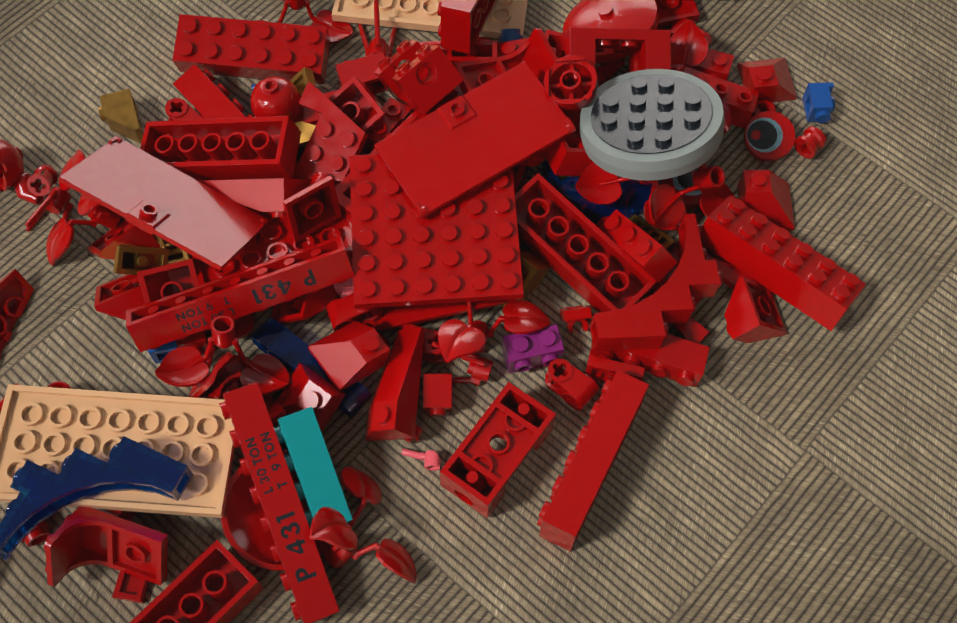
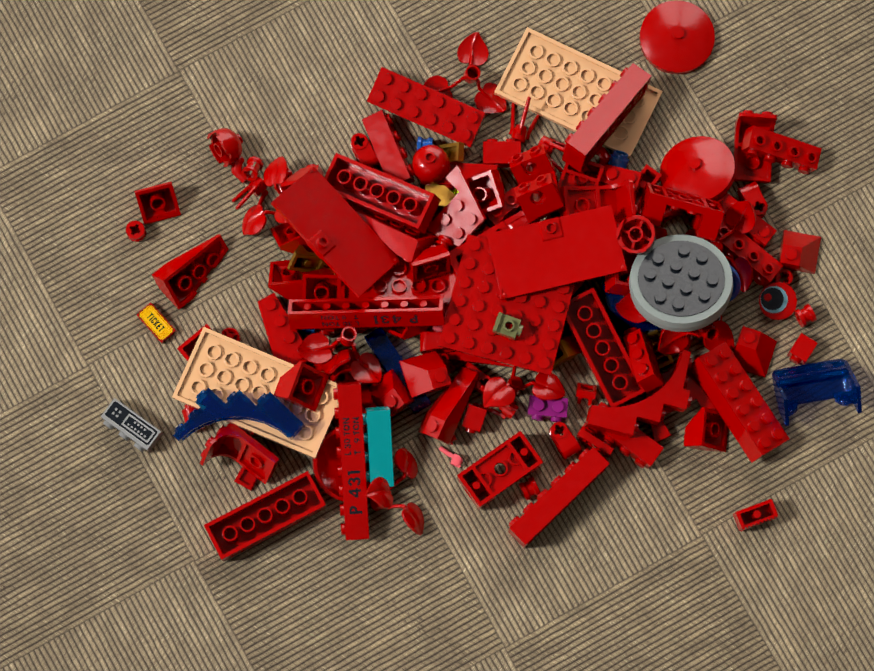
camera: 20 degrees right, 15 degrees up
(121, 114) = (319, 130): pearl gold slope -> none
(129, 368) = (280, 336): none -> red wedge
(172, 416) = (302, 386): none -> red slope
(437, 252) = (500, 329): none -> olive brick
(547, 463) = (529, 488): none -> red wheel
(818, 102) = (826, 285): blue brick -> none
(825, 180) = (801, 349): none -> red brick
(868, 395) = (755, 515): none -> red brick
(869, 211) = (815, 383): none -> clear blue windscreen

